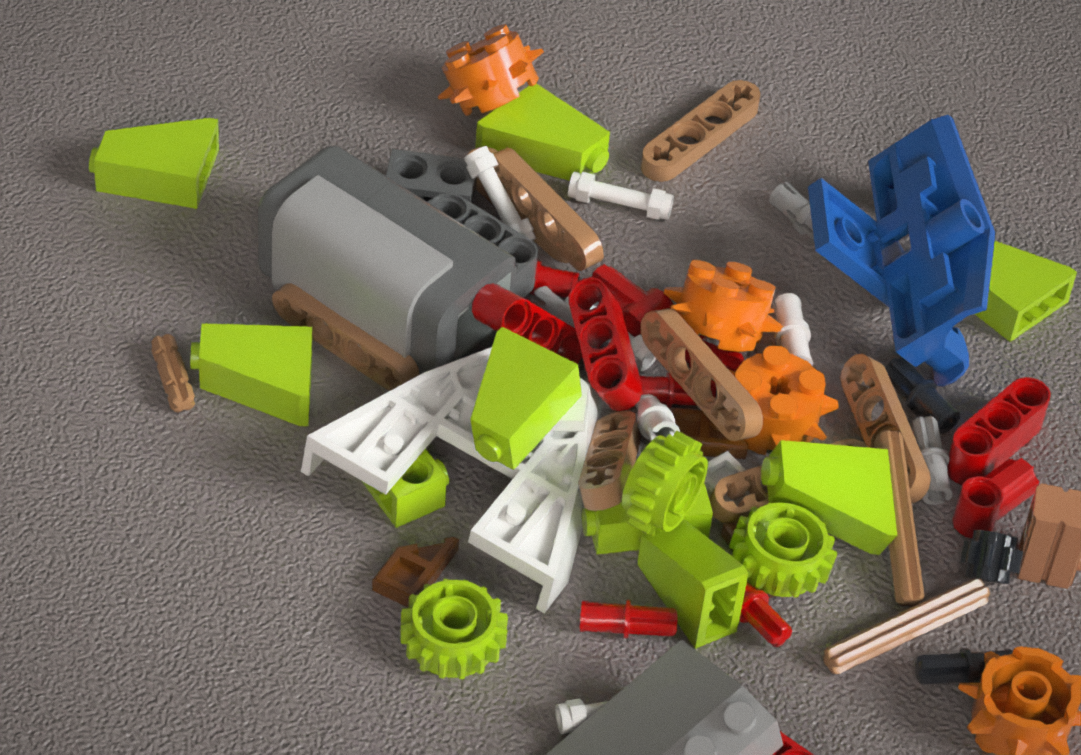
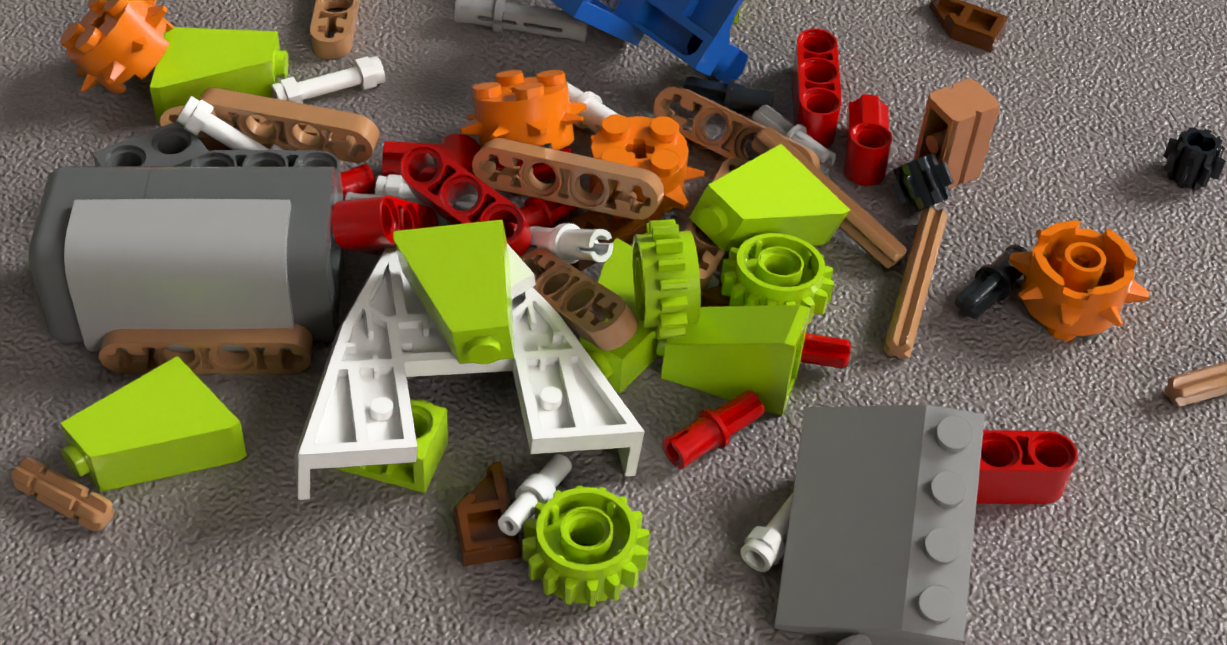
camera: 40 degrees left, 0 degrees up
(458, 571) = (533, 490): none -> white bar

